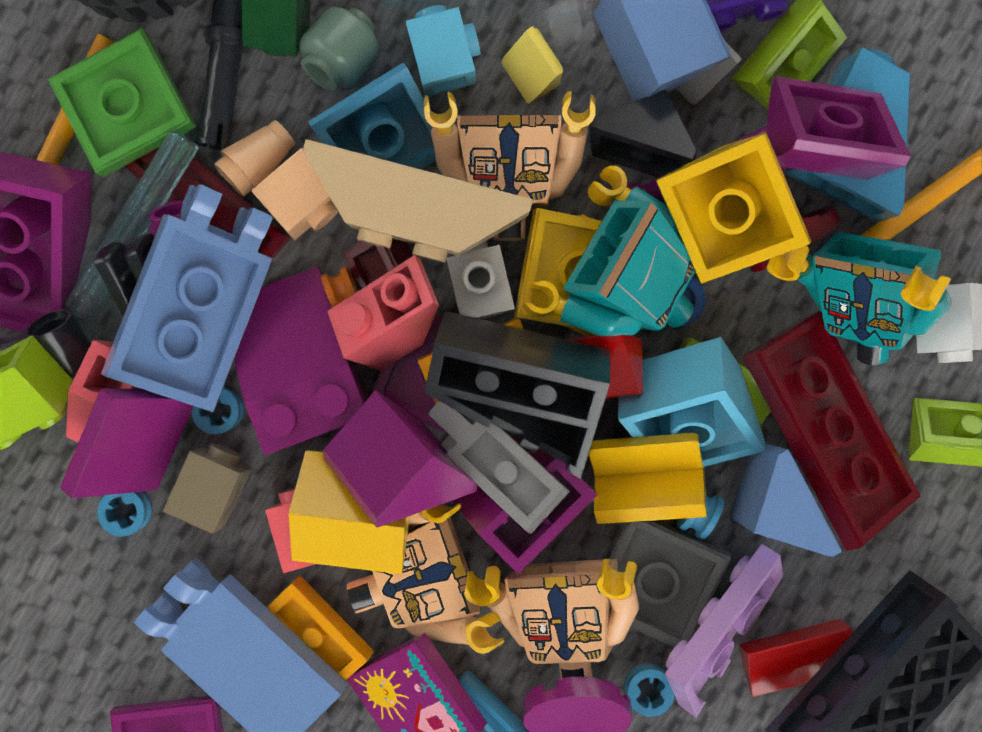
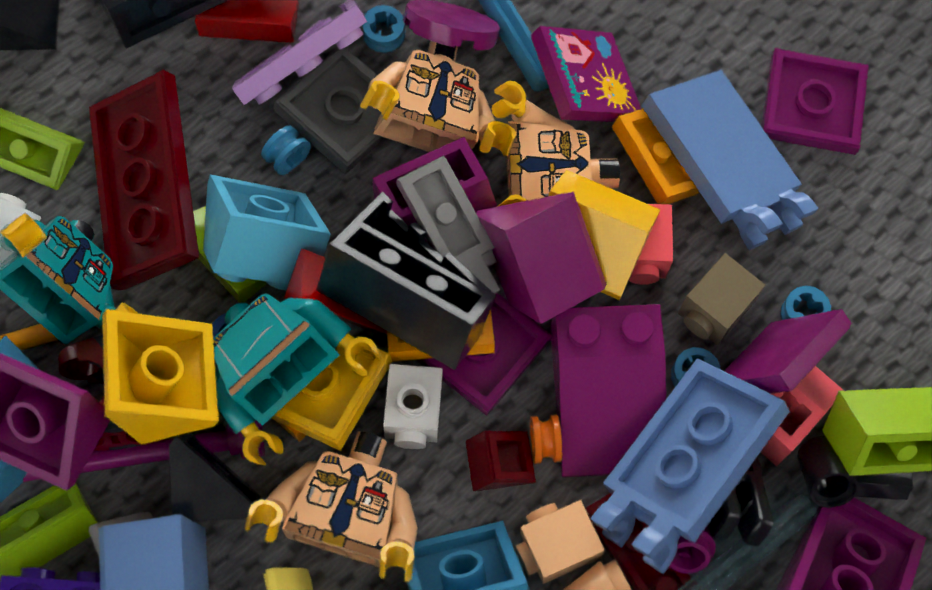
camera: 160 degrees left, 20 degrees down
(386, 316) = (511, 392): coral slope -> none
(412, 204) = (452, 471): tan wedge -> none
(648, 478) = (320, 182): yellow panel -> none
(779, 504) = (220, 124): medium blue slope -> none

